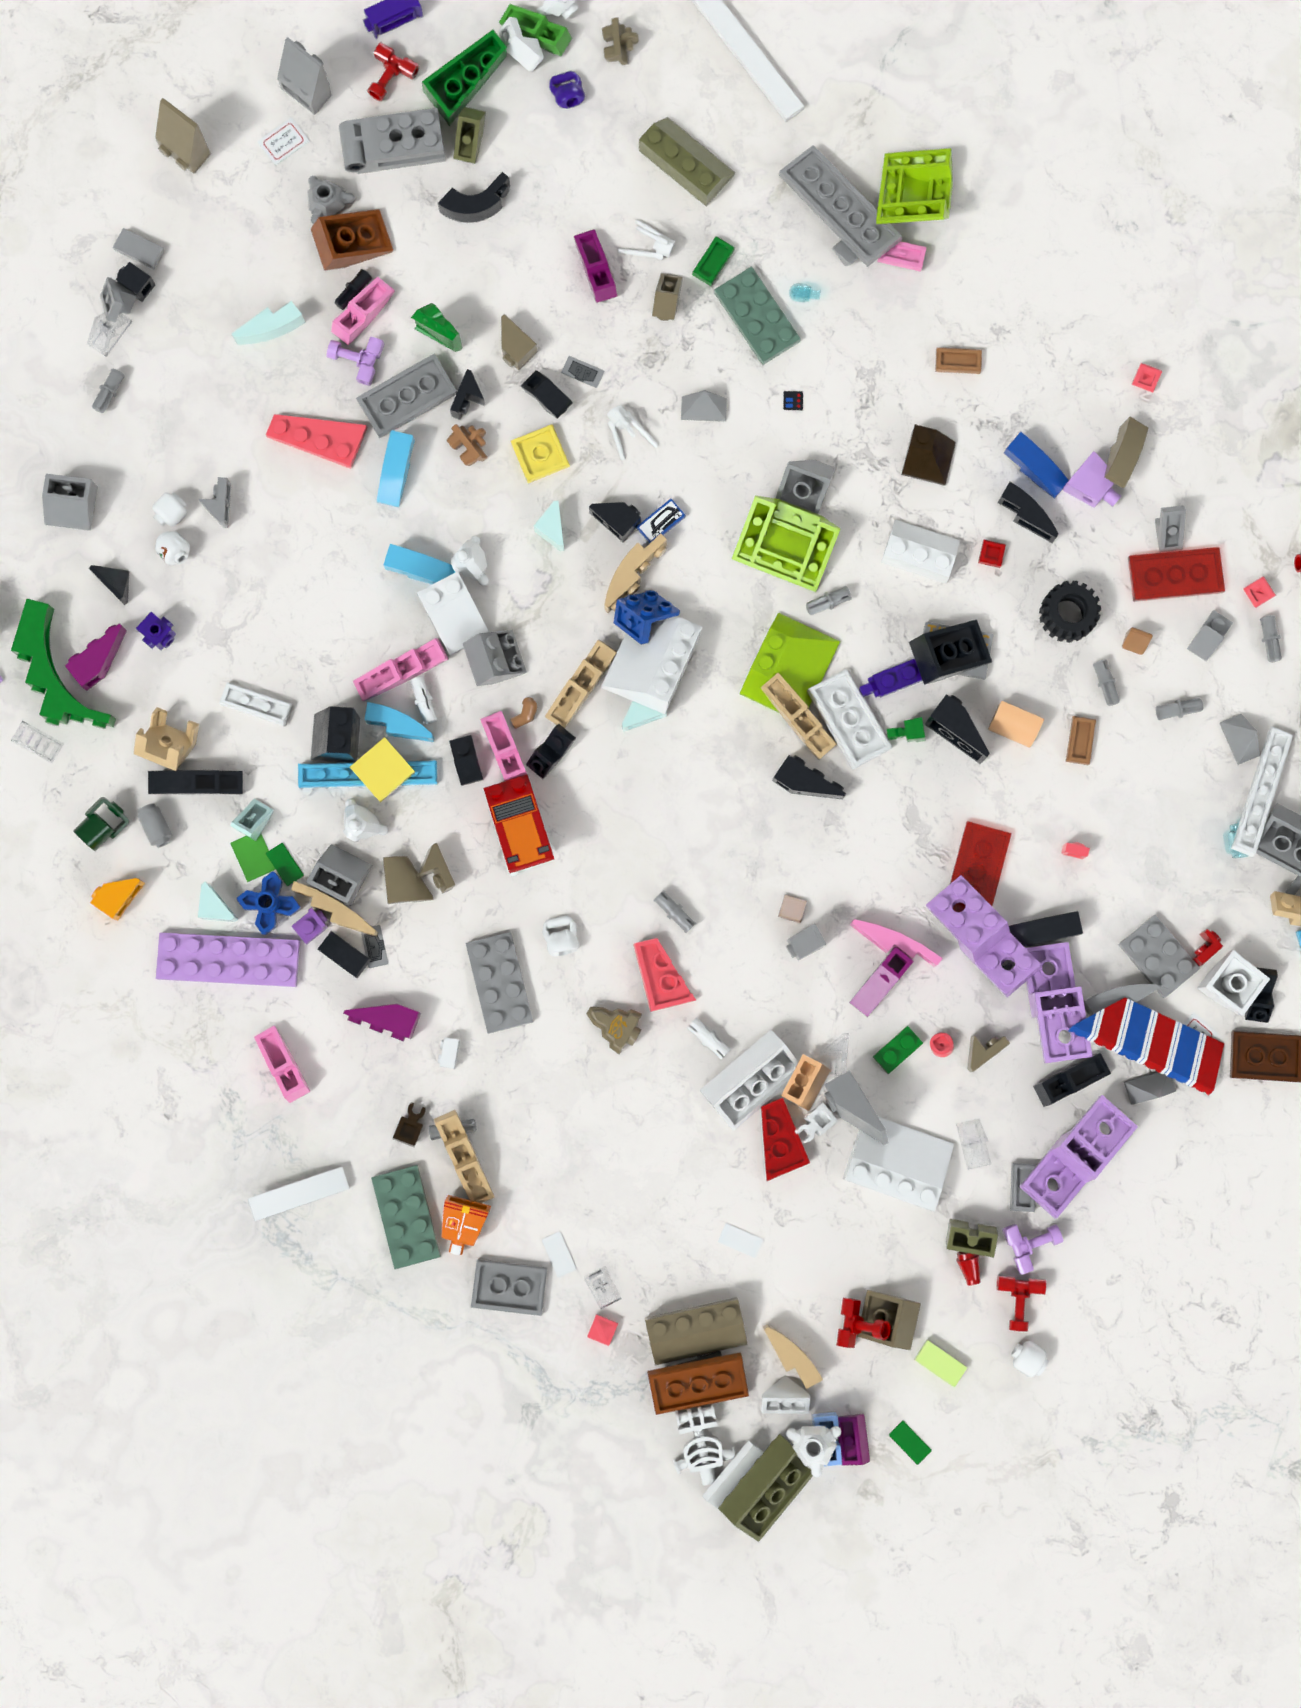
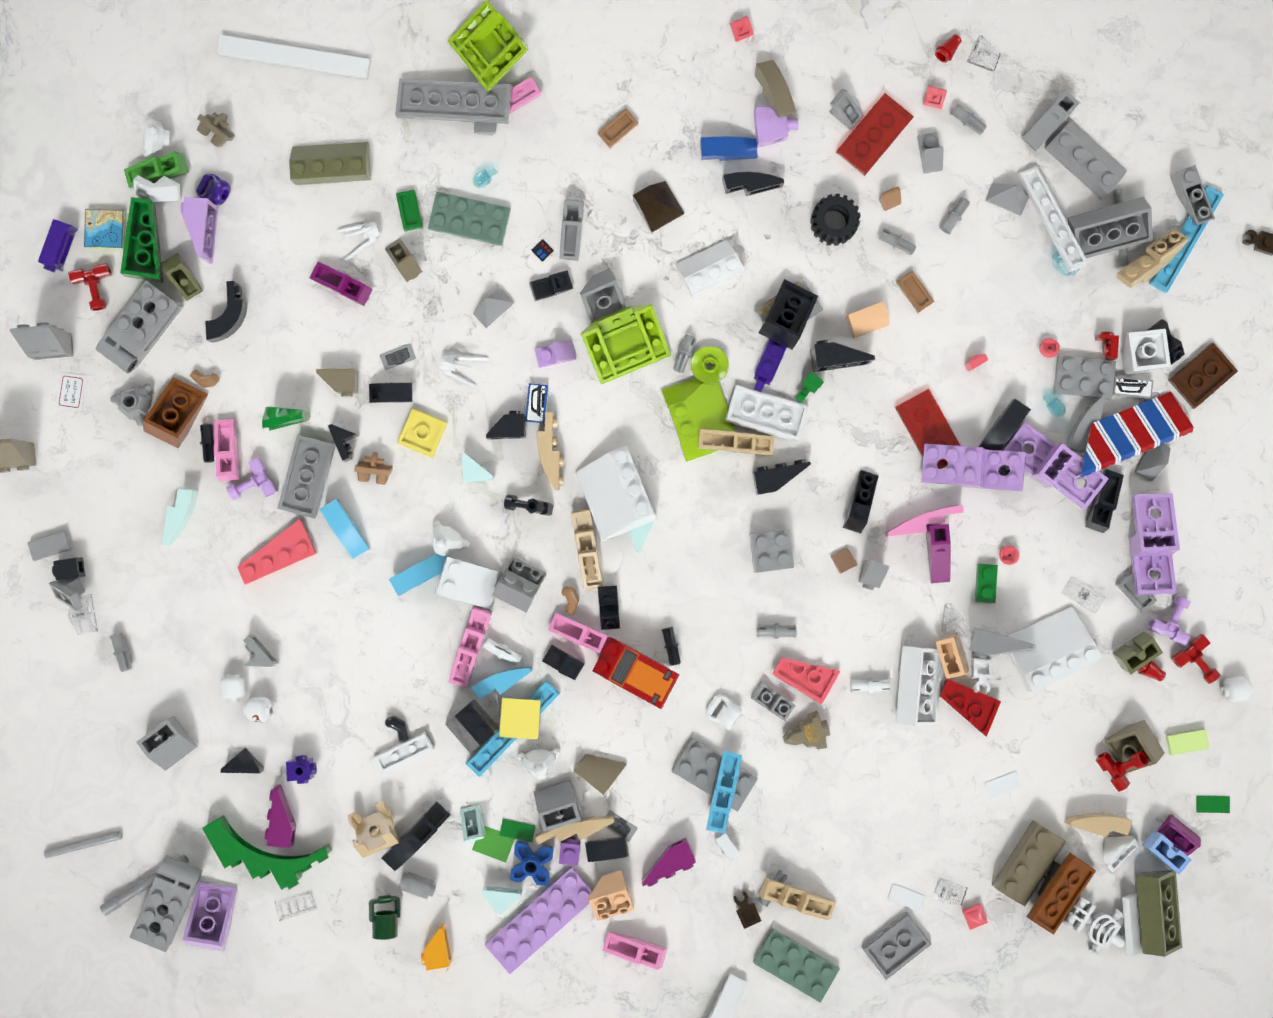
camera: 45 degrees left, 5 degrees up
(274, 675) = (398, 725): none -> black arm
(306, 997) = (610, 896): none -> light nougat slope
(402, 238) = (205, 381): none -> medium nougat arm
(436, 864) = (606, 743): dark tan slope -> none
(444, 36) = (104, 229): none -> tile
(462, 1222) = (833, 936): orange torso -> none
(492, 1002) = (724, 792): none -> medium azure slope
(529, 106) = (201, 222): none -> lavender slope
(571, 836) = (671, 646): none -> black axle
(572, 599) = (531, 505): none -> black bar
(611, 969) = (773, 701): none -> light grey slope
(638, 611) = (581, 469): blue bracket -> none
(718, 496) = (555, 354): none -> lavender slope
(737, 838) = (771, 551): none -> light grey brick
(770, 436) = (551, 285): none -> black slope
(814, 1445) = (1167, 865): white rock -> none
(834, 405) = (571, 229): none -> light grey slope
(842, 620) = (712, 356): none -> lime dish
(856, 872) = (861, 502): none -> black slope
(979, 1055) = (1038, 540): dark tan slope -> none
(991, 553) = (753, 229): red tile -> none
(1108, 954) = (1055, 406): none -> clear light blue cylinder
(1152, 900) = (1049, 348): none -> coral tile
(1192, 1006) = (1133, 387): none -> tile

